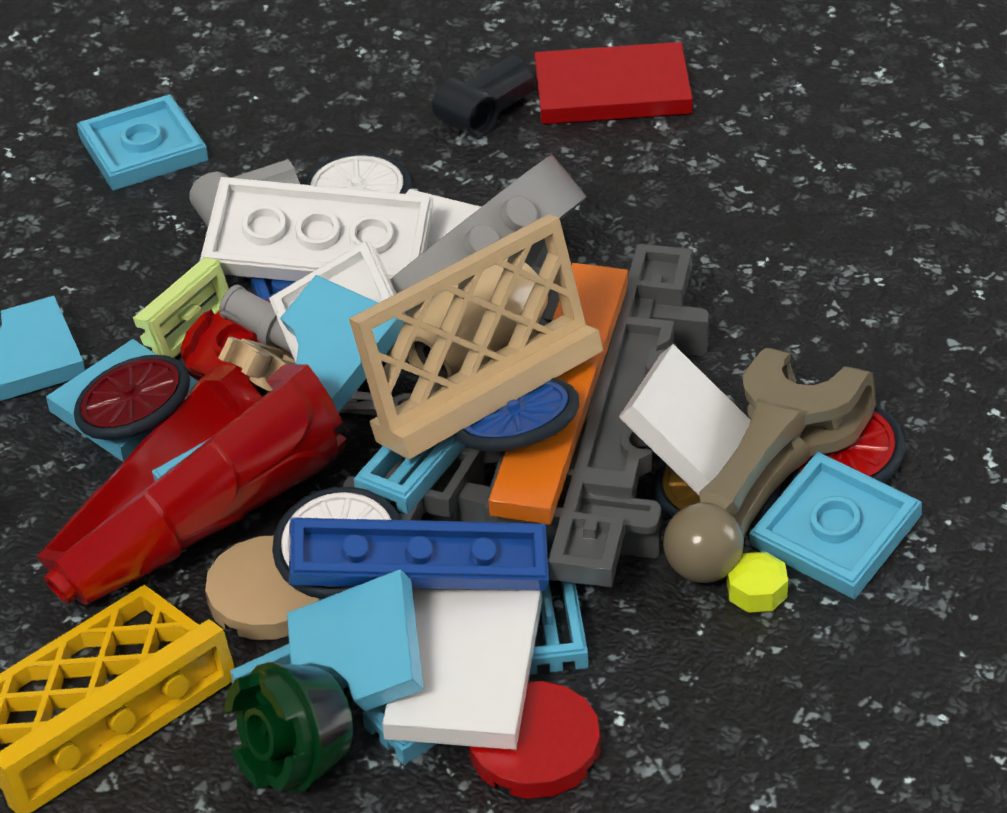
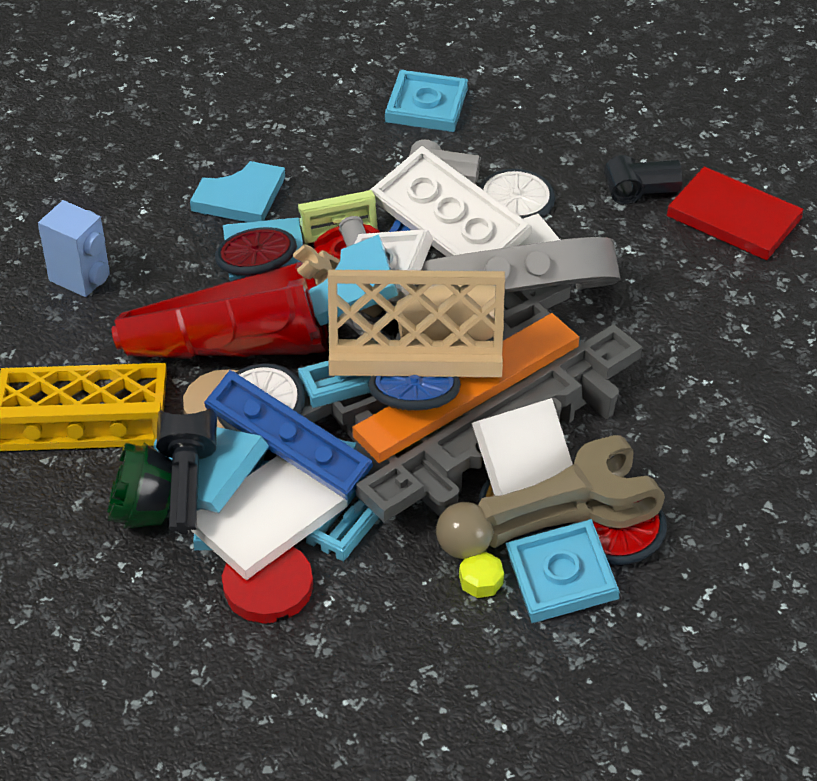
camera: 35 degrees right, 5 degrees up
(317, 628) = (186, 441): none -> black piece

